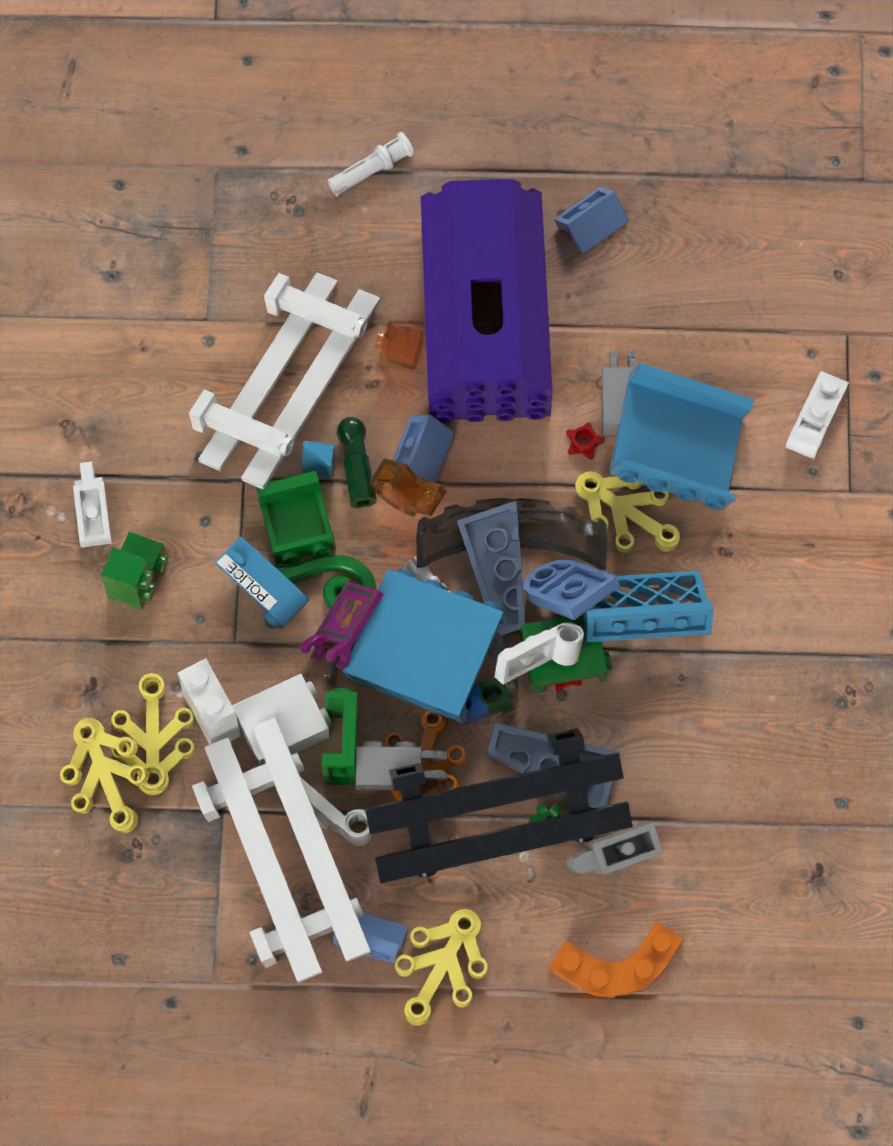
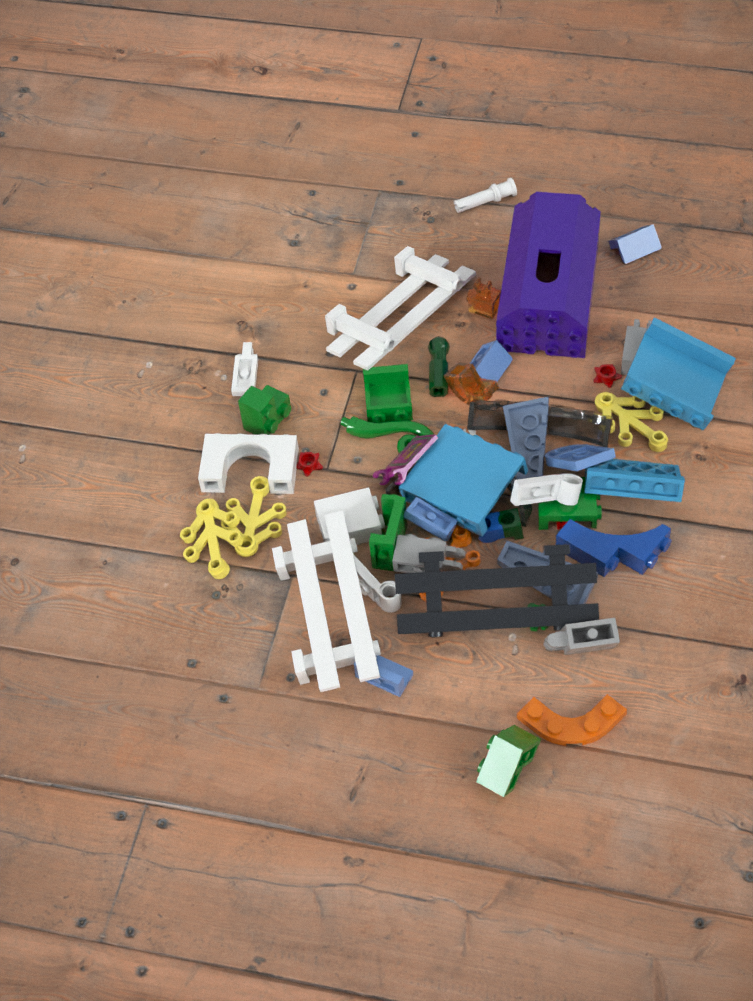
camera: 15 degrees right, 15 degrees down
(88, 640) = (224, 449): none -> white arch
(202, 632) = (311, 458): none -> red plate
(208, 702) = (296, 493): white brick -> none
(262, 582) = (359, 433): dark azure door -> none
(318, 458) = (414, 358): dark azure slope -> none
(392, 711) = (430, 519): none -> medium blue panel
(444, 960) = (434, 698): light yellow plant -> none
(549, 1034) = (506, 757): none -> brick
(619, 718) = (607, 550): none -> blue arch

